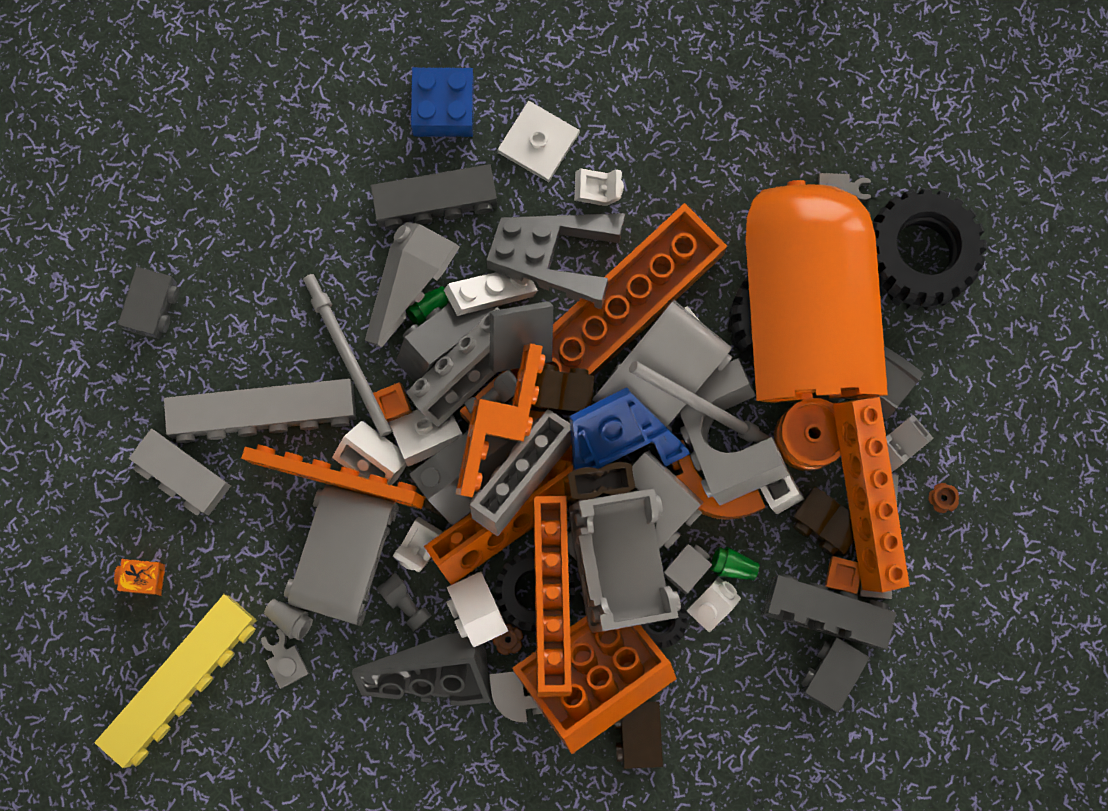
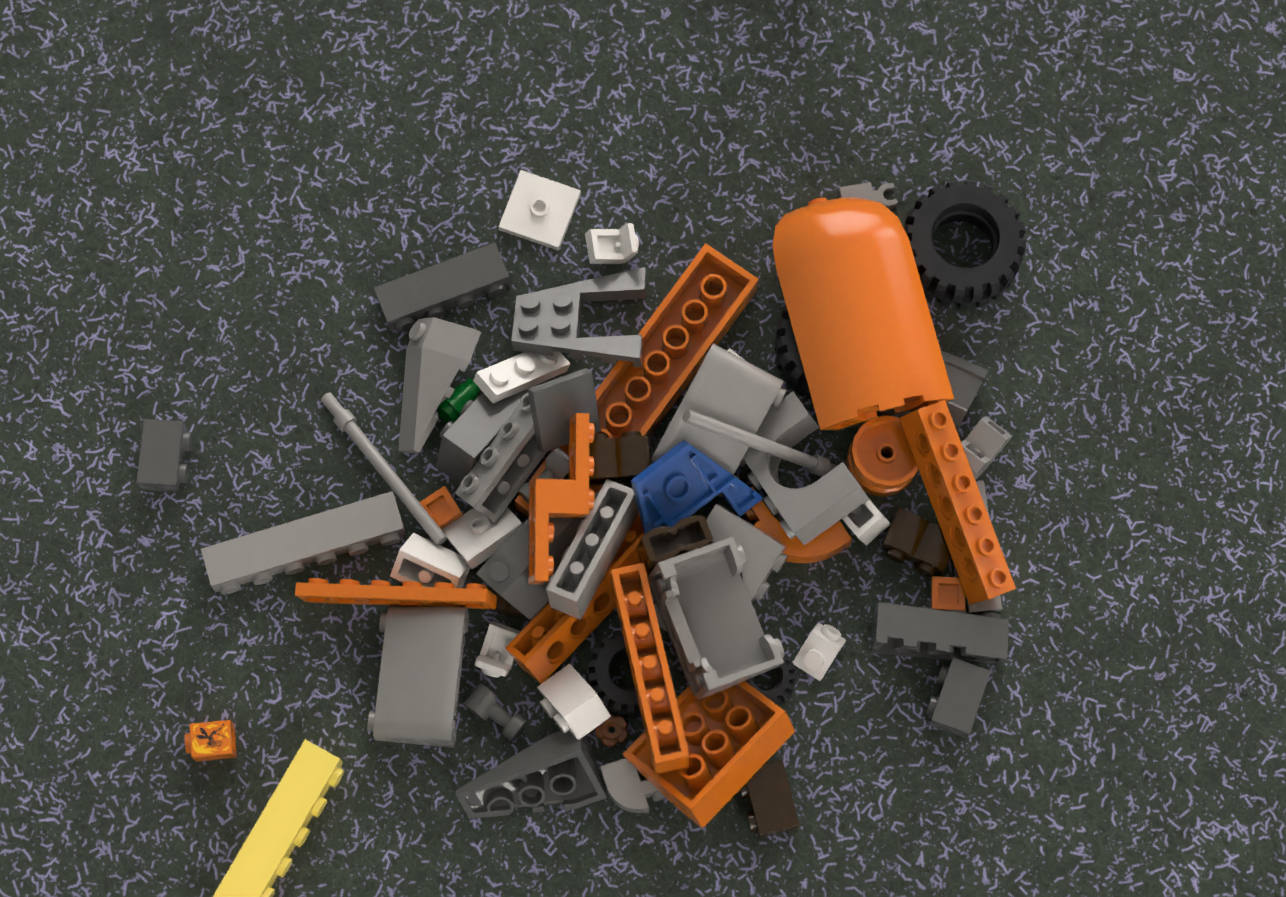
camera: 10 degrees left, 5 degrees down
(178, 473) = (231, 625): light grey brick -> none
(286, 664) = (383, 800): light grey plate -> none
(289, 619) = (379, 754): light grey cone -> none
(442, 102) = (431, 188): blue brick -> none
(688, 568) = (785, 618): light grey brick -> none
(733, 564) = (831, 606): green cone -> none
(951, 494) = (1039, 487): dark orange plate -> none

